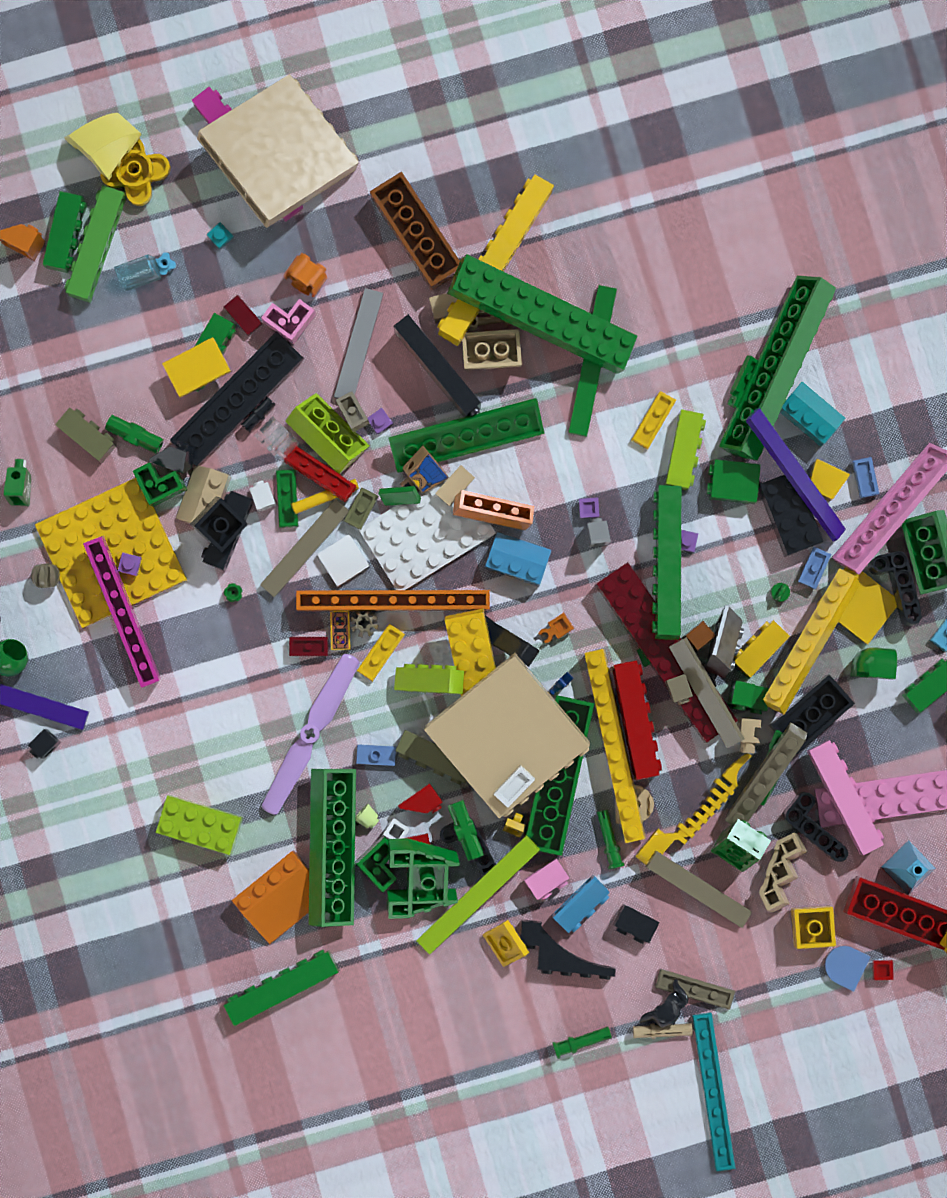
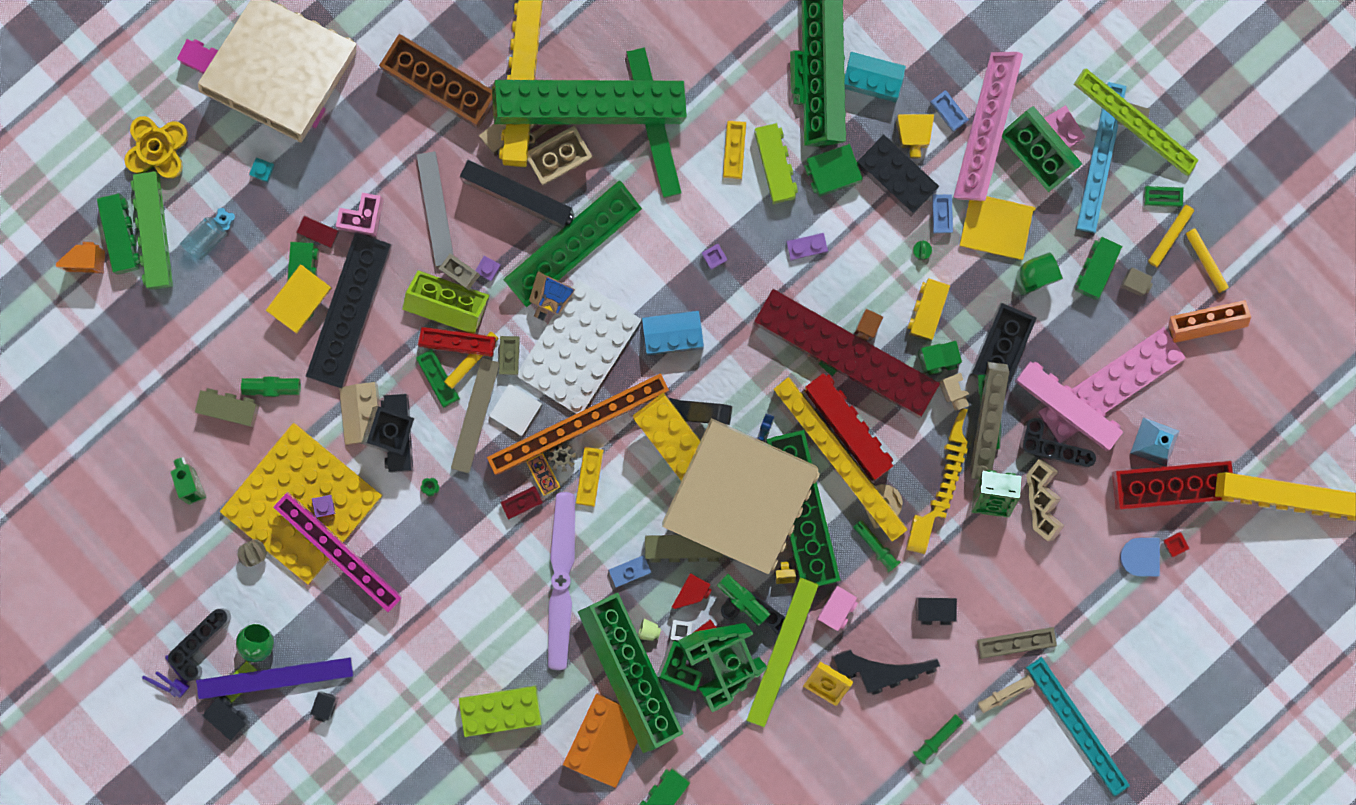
camera: 25 degrees left, 0 degrees up
(105, 141) = (116, 133): light yellow wedge -> none
(158, 489) = (315, 426): green brick -> none
(175, 457) = (319, 389): black slope -> none
(258, 414) = (374, 315): black pin -> none
(262, 496) = (414, 386): white brick -> none
(277, 438) = (402, 328): clear brick -> none
(306, 275) = (357, 168): orange brick -> none
(399, 496) = (538, 327): green tile -> none
(429, 679) = (645, 480): lime brick -> none
(457, 481) = (584, 294): tan tile -> none
(493, 510) = (629, 299): orange brick -> none
(514, 786) = (768, 538): white tile -> none
(559, 626) = (739, 377): orange plate -> none
(581, 904) = (879, 616): dark azure slope -> none
(598, 533) = (733, 275): light grey slope -> none
(668, 562) = (809, 271): green brick -> none
(669, 1011) = (1004, 673): black hair -> none
(679, 689) = (874, 380): dark tan brick -> none
(698, 889) = (977, 551): dark tan tile -> none
(706, 693) = (900, 371): dark tan tile -> none
(724, 644) = (895, 321): flat silver slope -> none
(795, 474) = (886, 137): dark purple tile -> none
(811, 641) = (971, 280): yellow brick -> none
(813, 927) = (1095, 536): yellow brick -> none
(899, 589) = (1026, 196): black beam -> none

